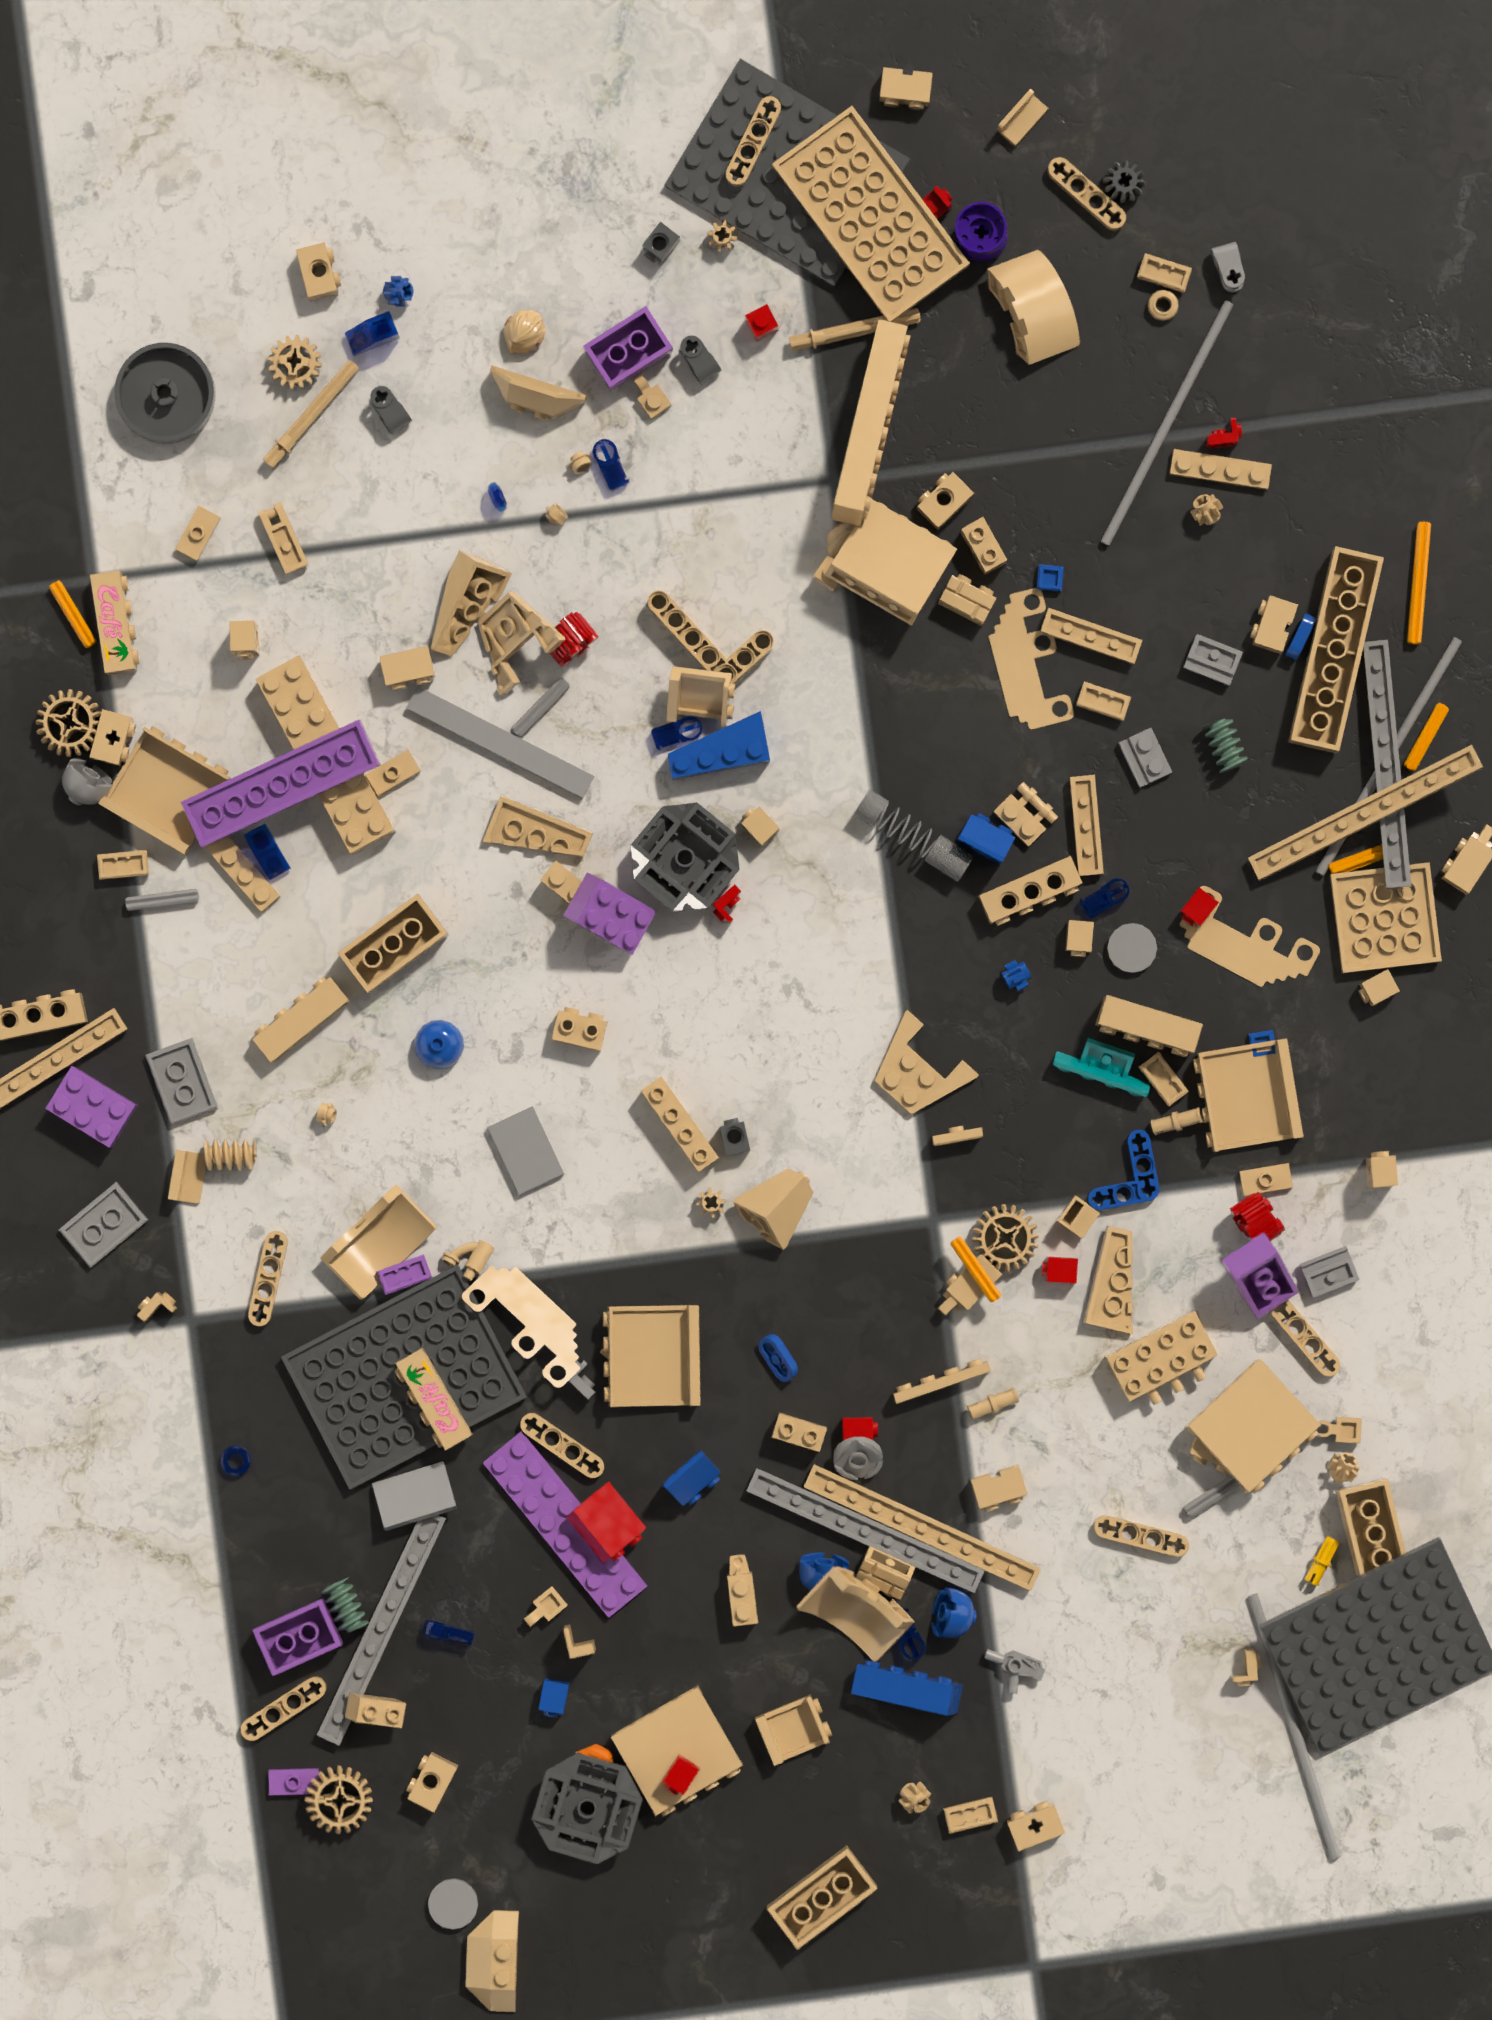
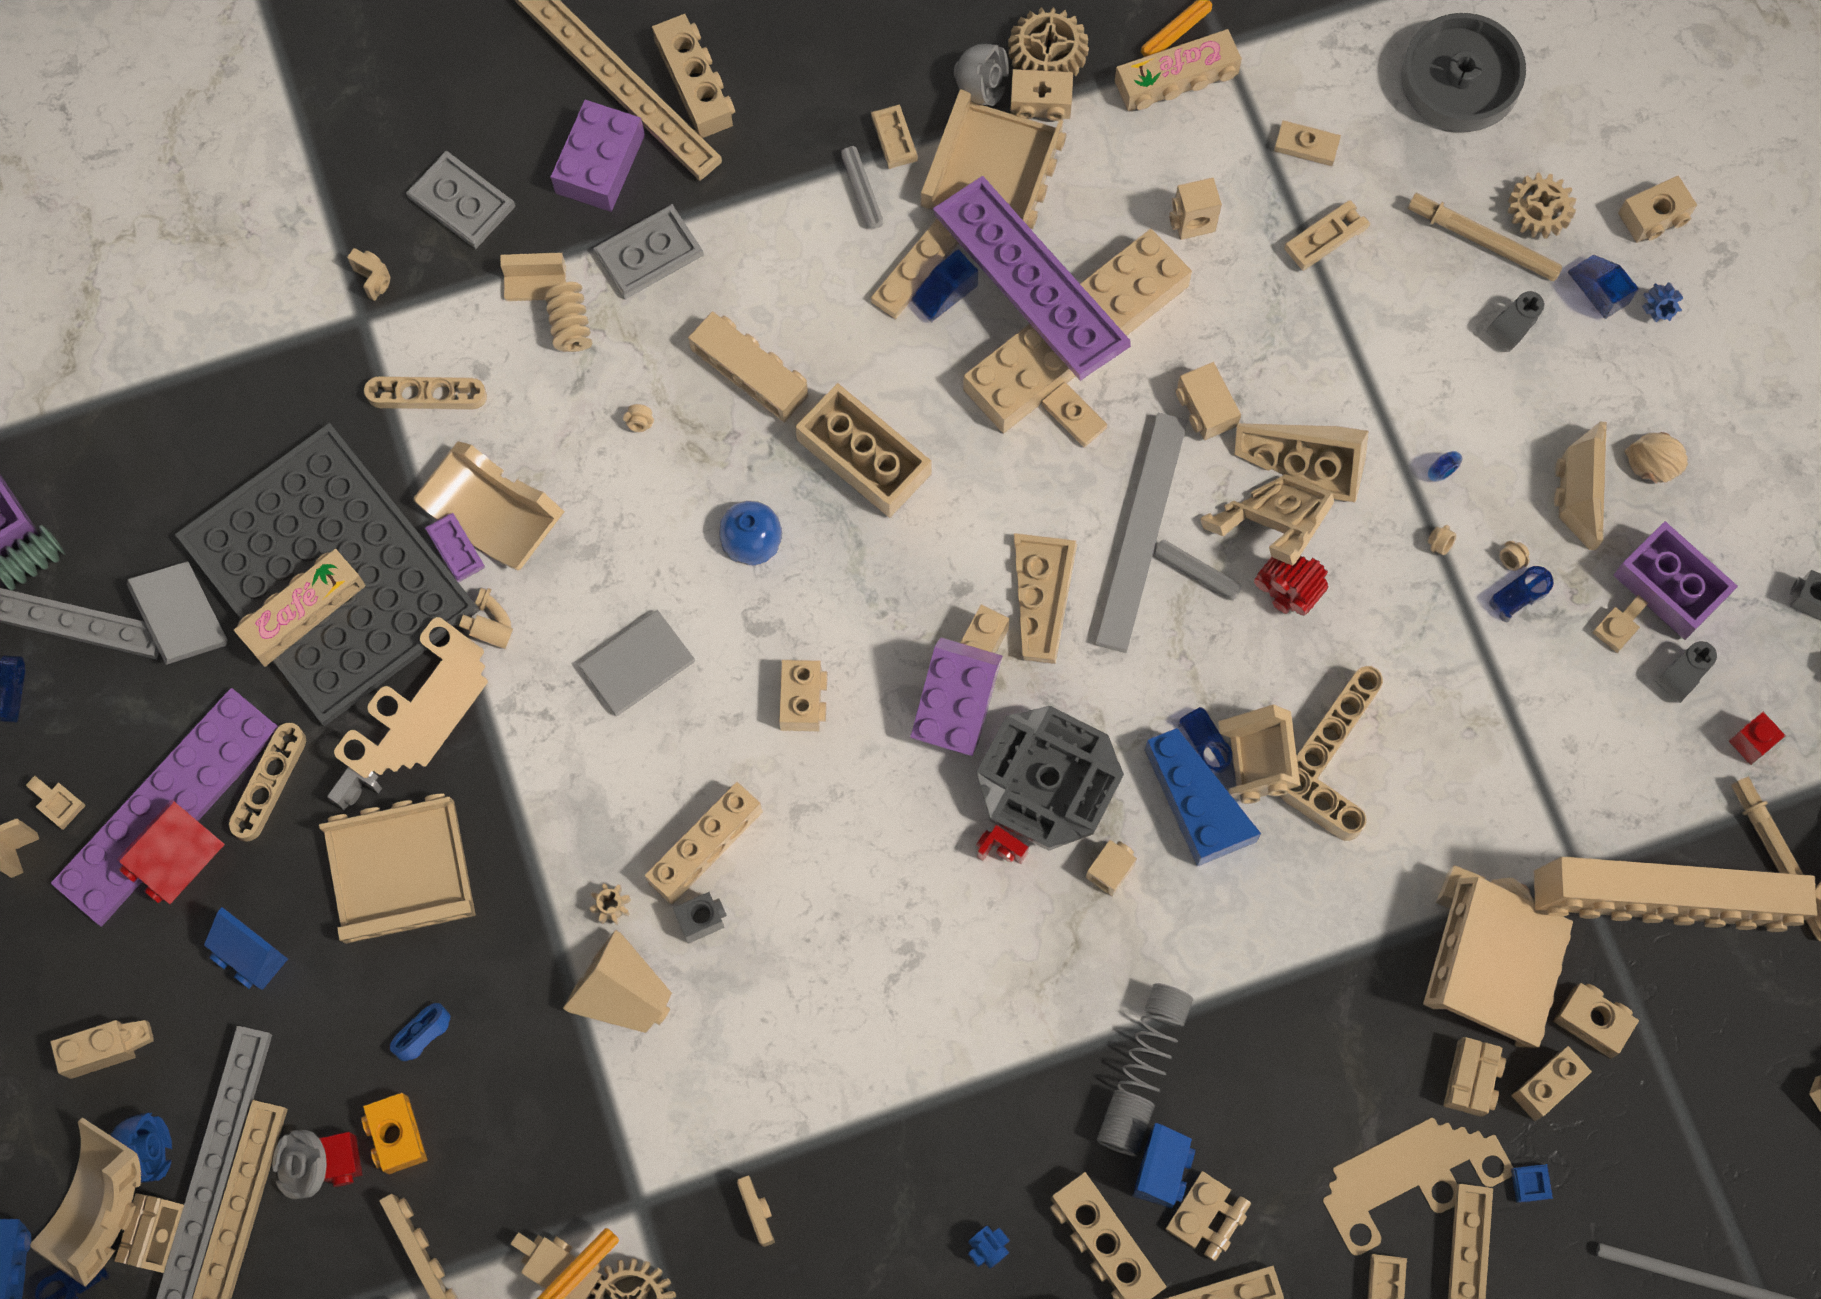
camera: 80 degrees right, 15 degrees down
(238, 1450) = (195, 388): clear blue piece -> none
(799, 1432) = (324, 1079): tan brick -> none
(864, 1388) = (408, 1148): none -> light orange brick
(911, 1078) = (823, 1133): tan wing -> none

